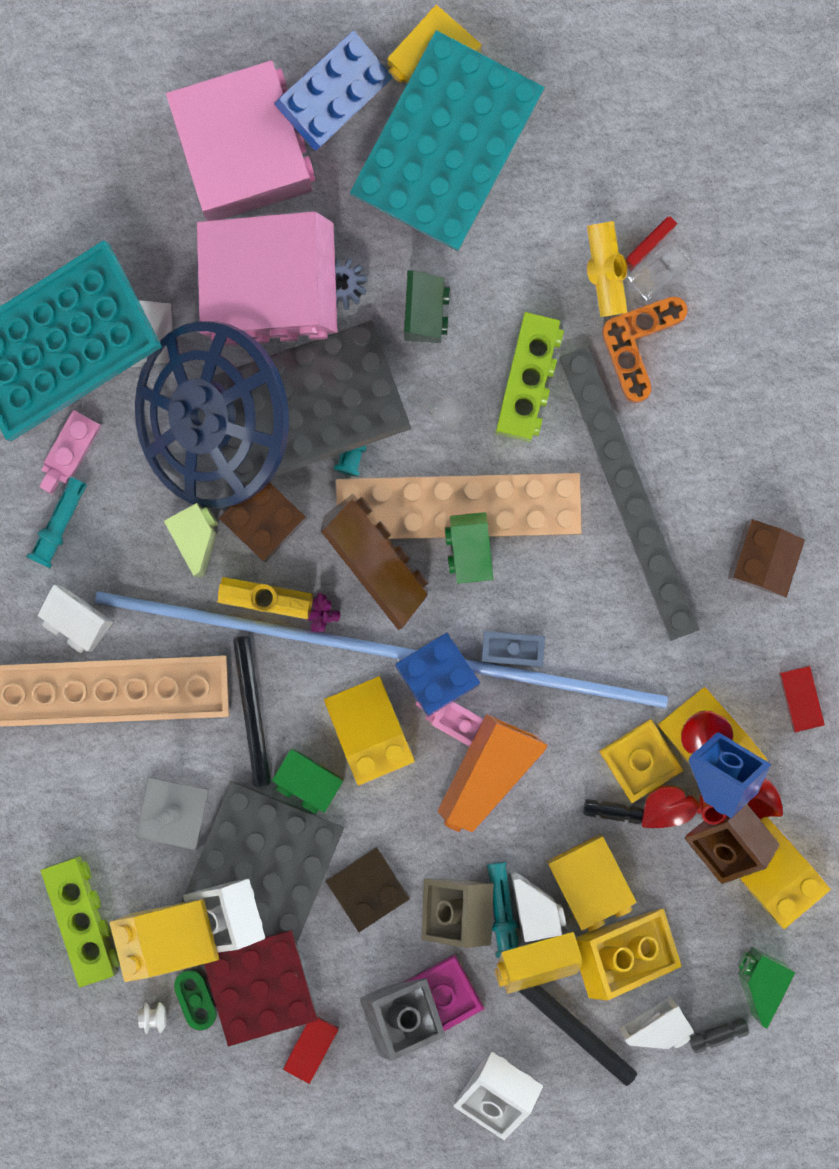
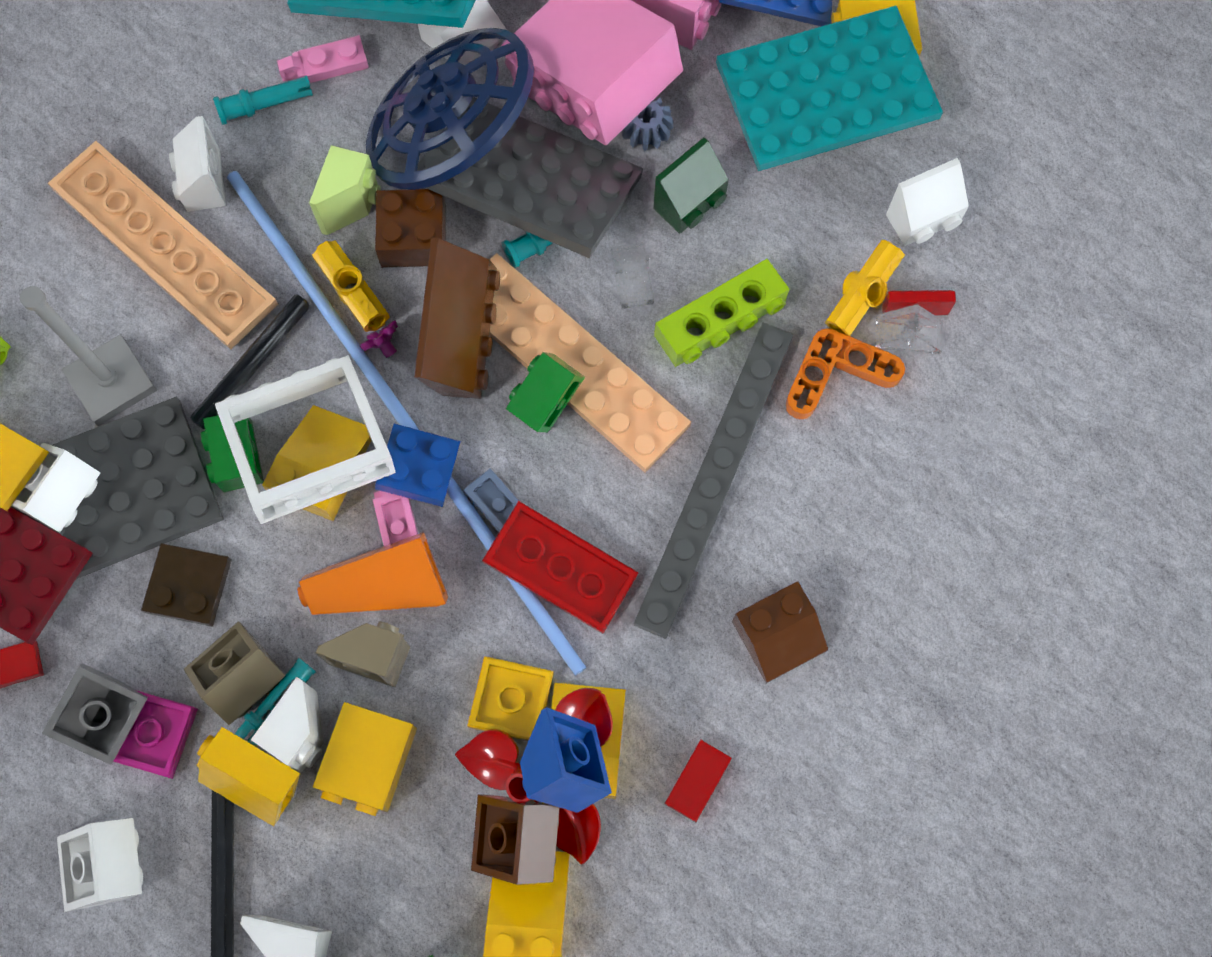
camera: 45 degrees right, 15 degrees down
(403, 749) = (319, 484): none -> white window
(533, 821) = (368, 652): none -> dark tan slope
(591, 651) = (560, 567): none -> red tile
(595, 164) = (929, 203): none -> white slope
(613, 811) = (444, 717): black axle -> none
(627, 954) = (330, 851): yellow slope -> none

